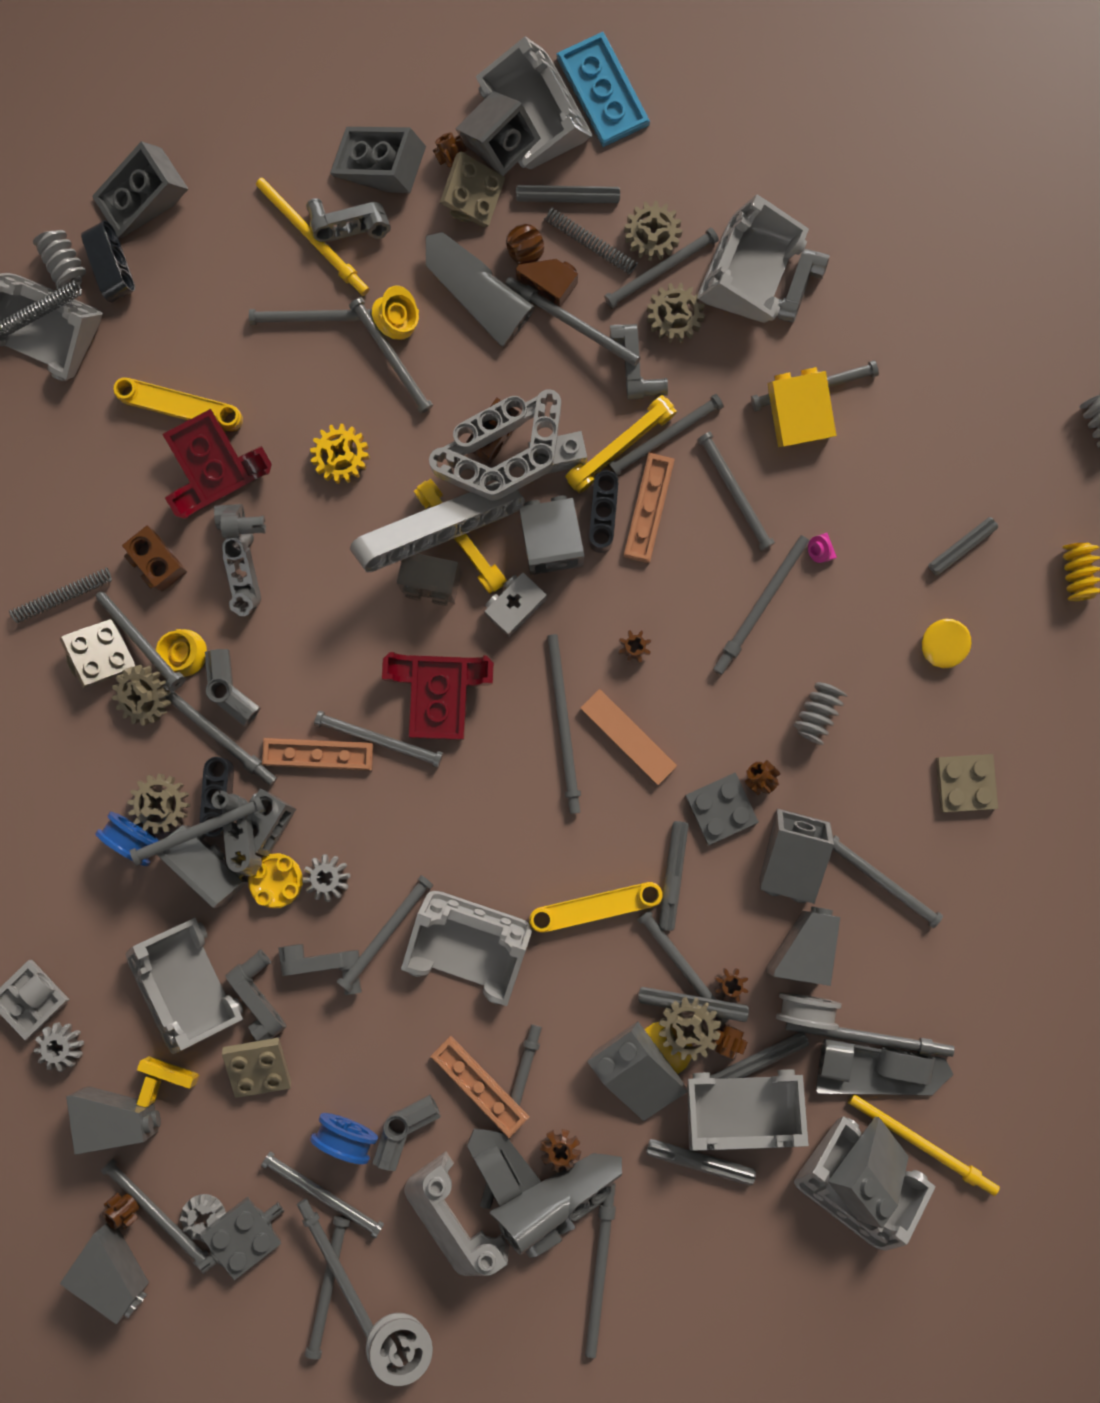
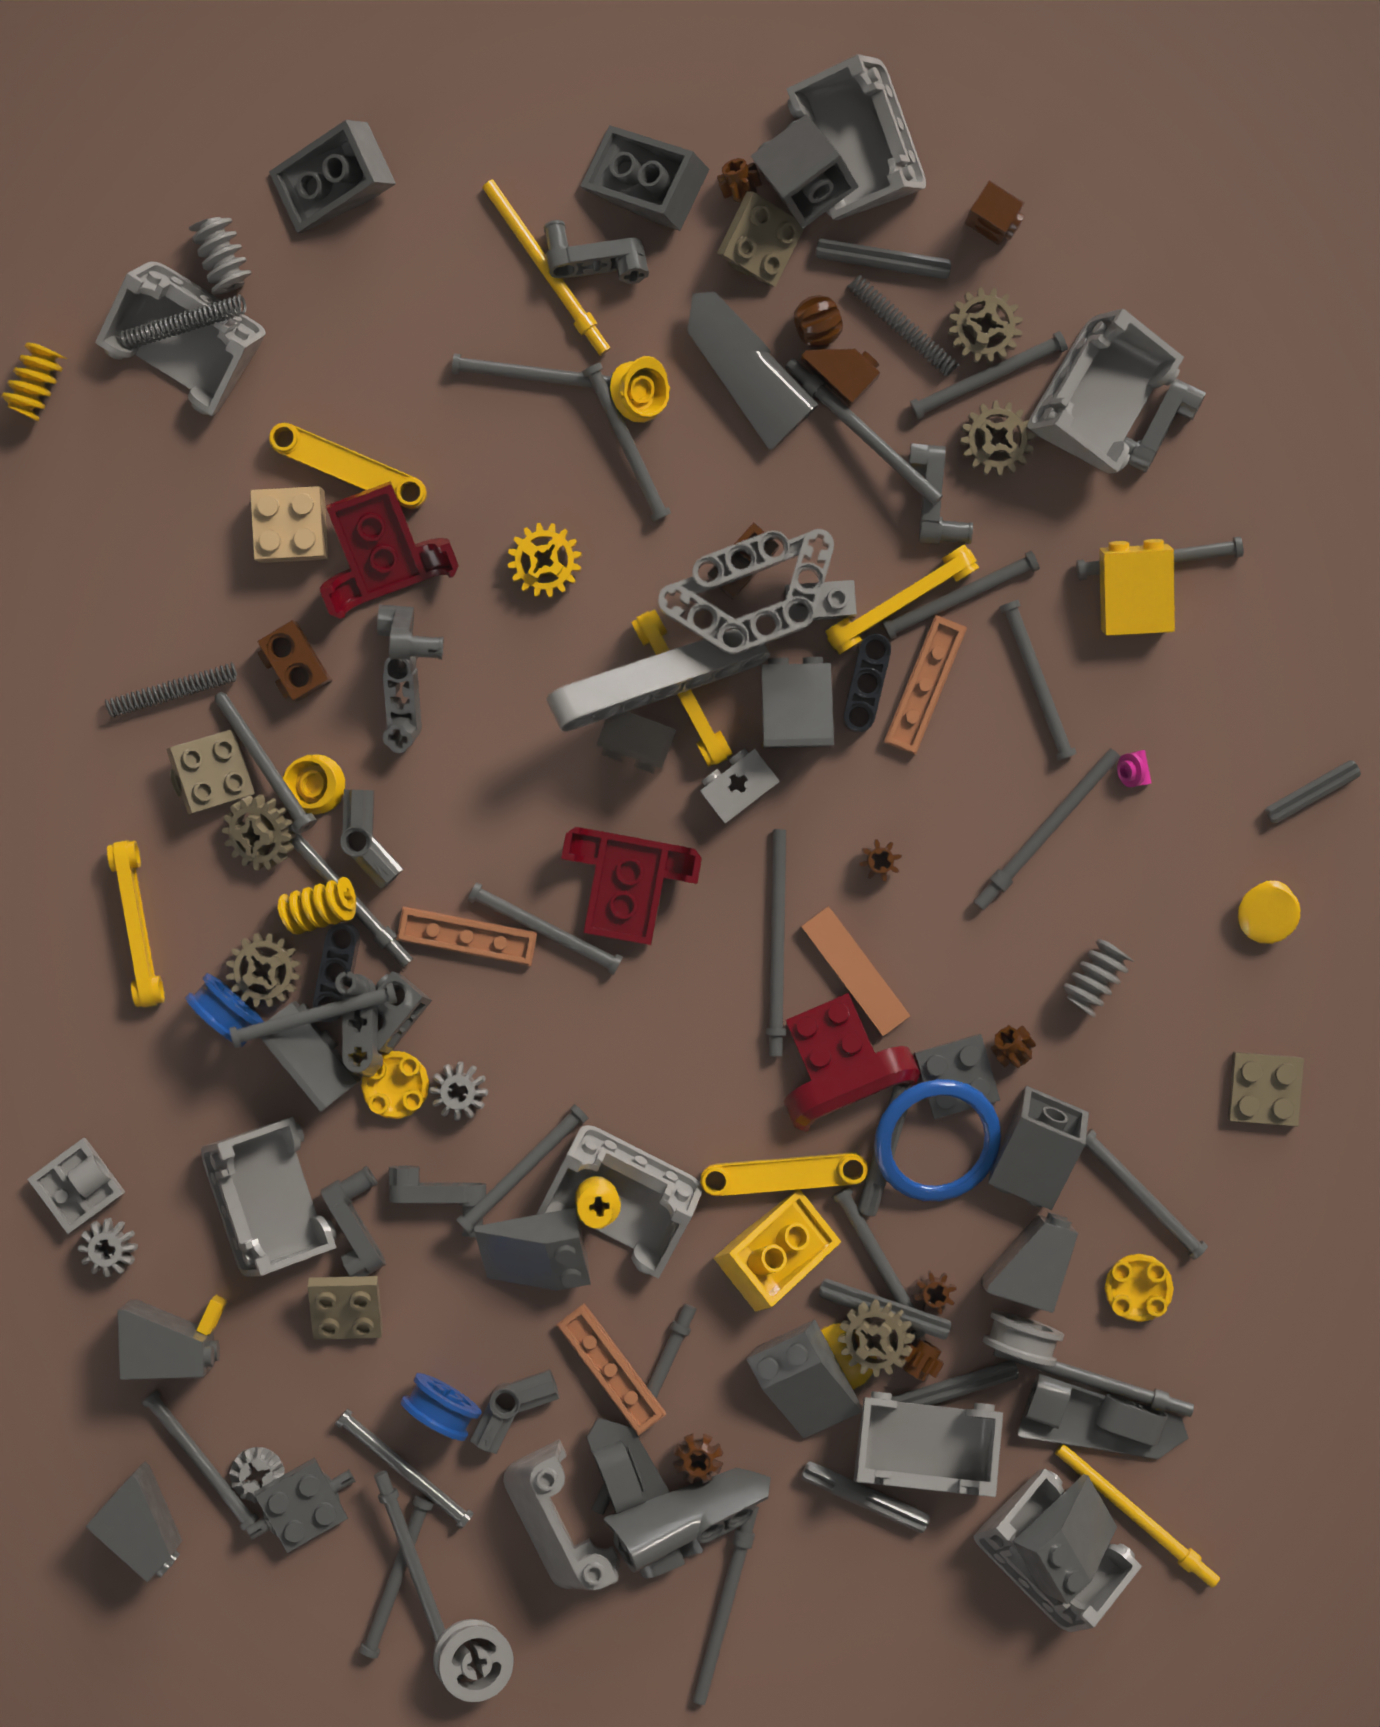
camera: 10 degrees right, 5 degrees up
(67, 831) = (124, 859): none -> yellow piece
(108, 261) = (281, 265): black beam -> none
(120, 1211) = (160, 1453): reddish brown gear -> none
(137, 454) = (289, 524): none -> tan brick
(168, 1072) = (237, 1297): yellow tile -> none
(195, 745) = (318, 907): none -> yellow piece
(404, 997) = (536, 1250): none -> dark grey slope
(459, 953) = (585, 1197): none -> yellow piece
(599, 970) = (777, 1251): none -> yellow slope
(603, 89) = (949, 122): dark azure tile -> none
(627, 810) = (841, 1062): none -> dark red piece
(647, 144) = (995, 214): none -> reddish brown brick
(676, 842) = (905, 1100): none -> blue wedge
(893, 957) = (1139, 1287): none -> yellow dish

